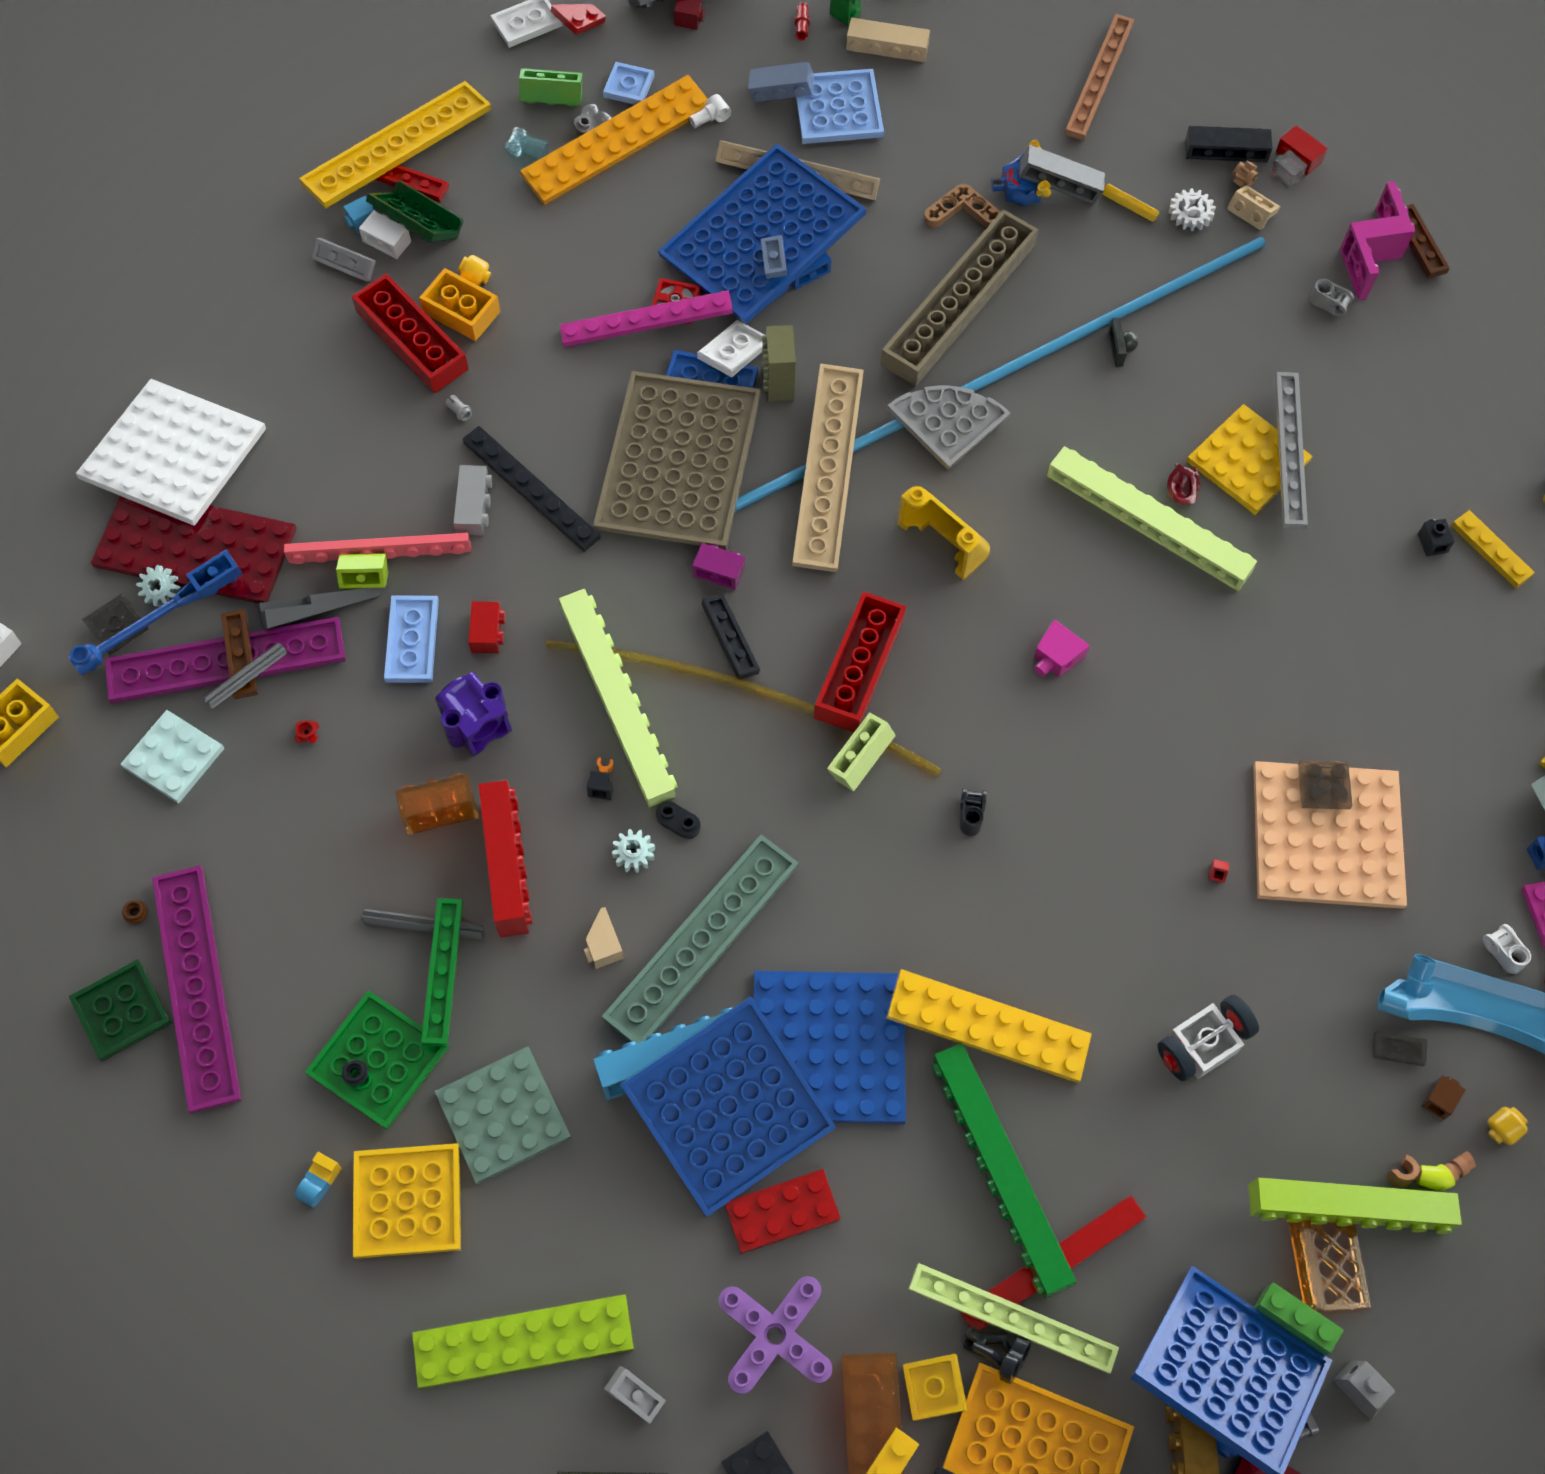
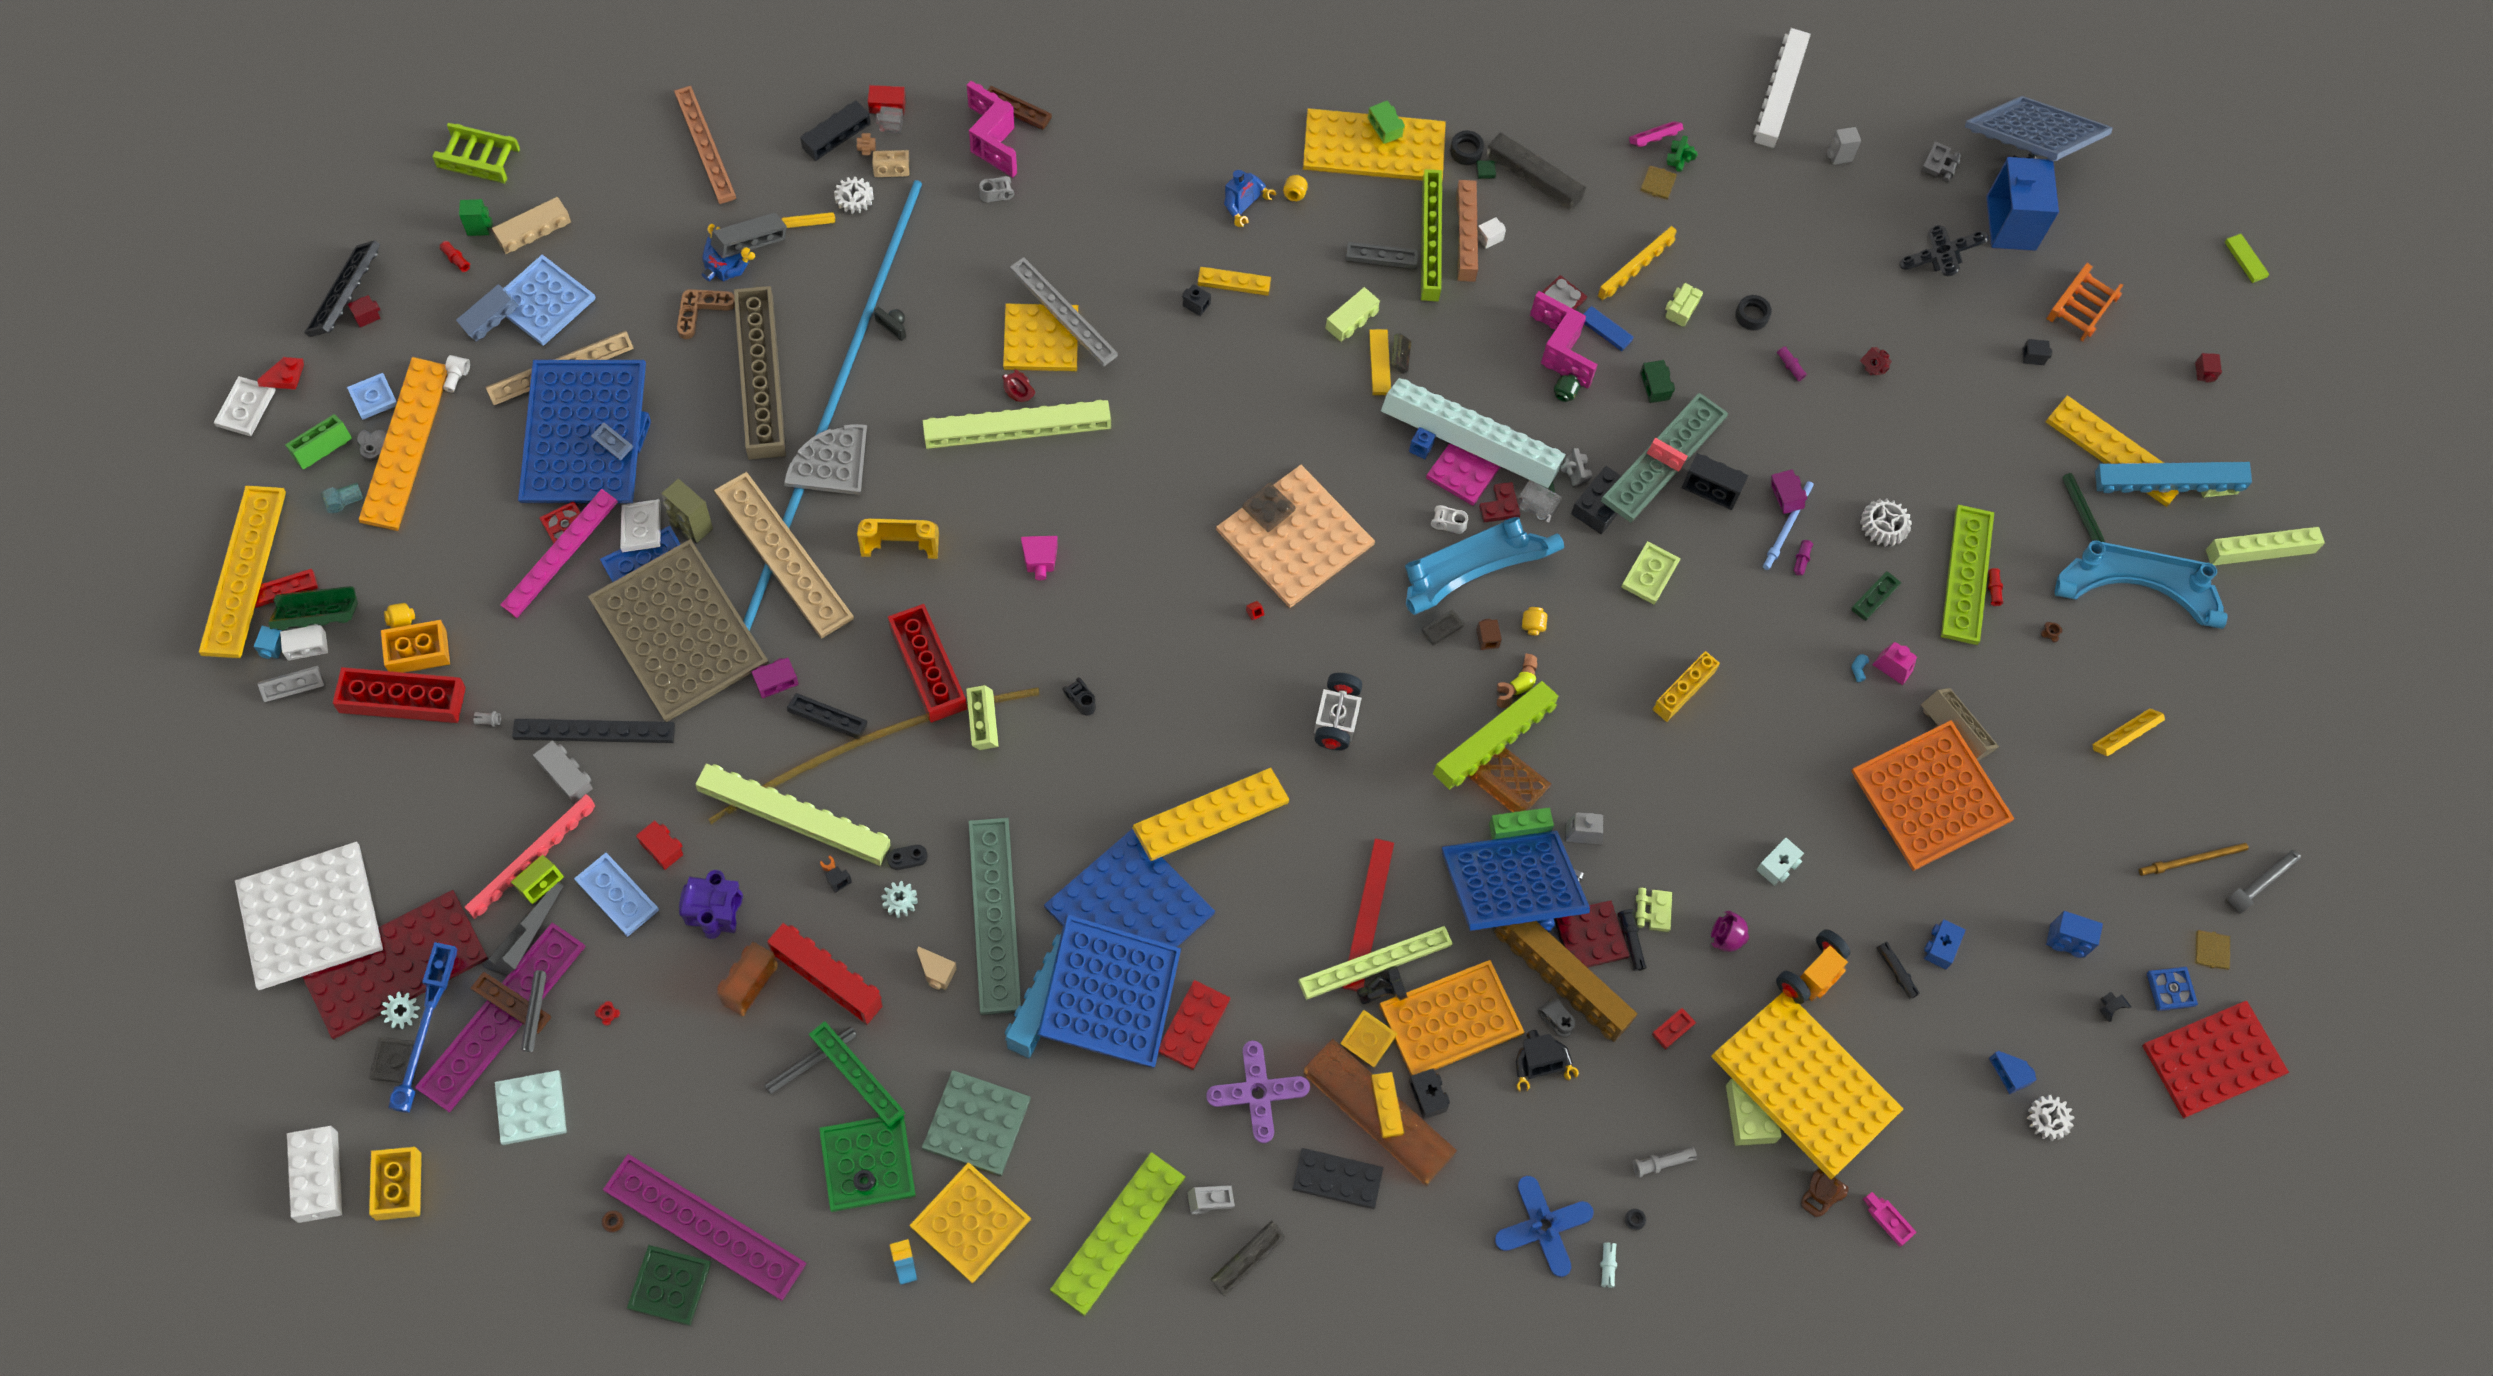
camera: 50 degrees left, 0 degrees up
(1004, 1172) = (1294, 887): green brick -> none

